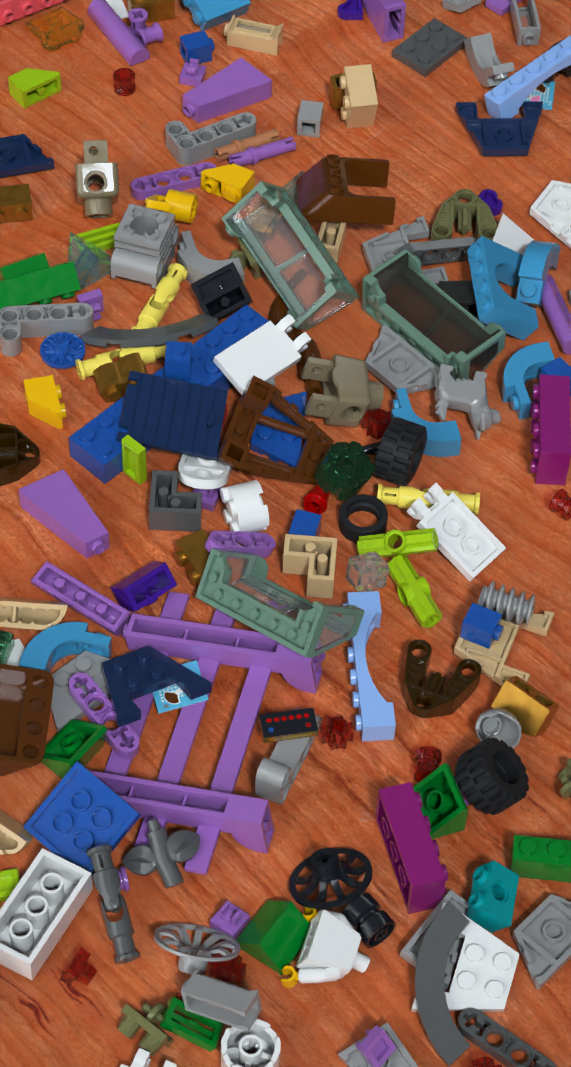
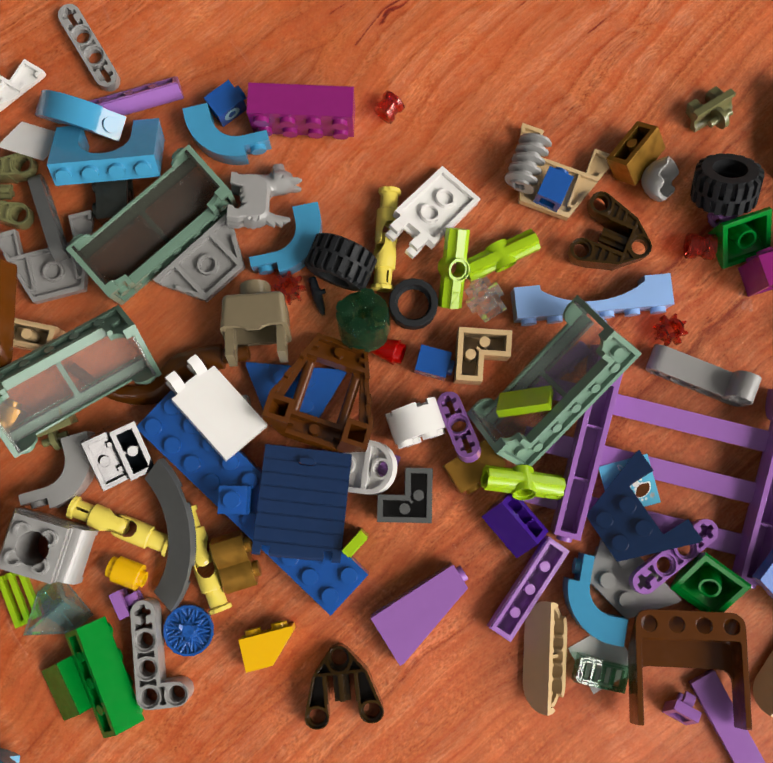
camera: 90 degrees left, 30 degrees up
(117, 306) = (126, 572): none -> yellow brick
(184, 583) = (522, 482): none -> lime piece
(262, 585) = (525, 401): none -> lime tile
(288, 725) = (681, 374): black tile -> none

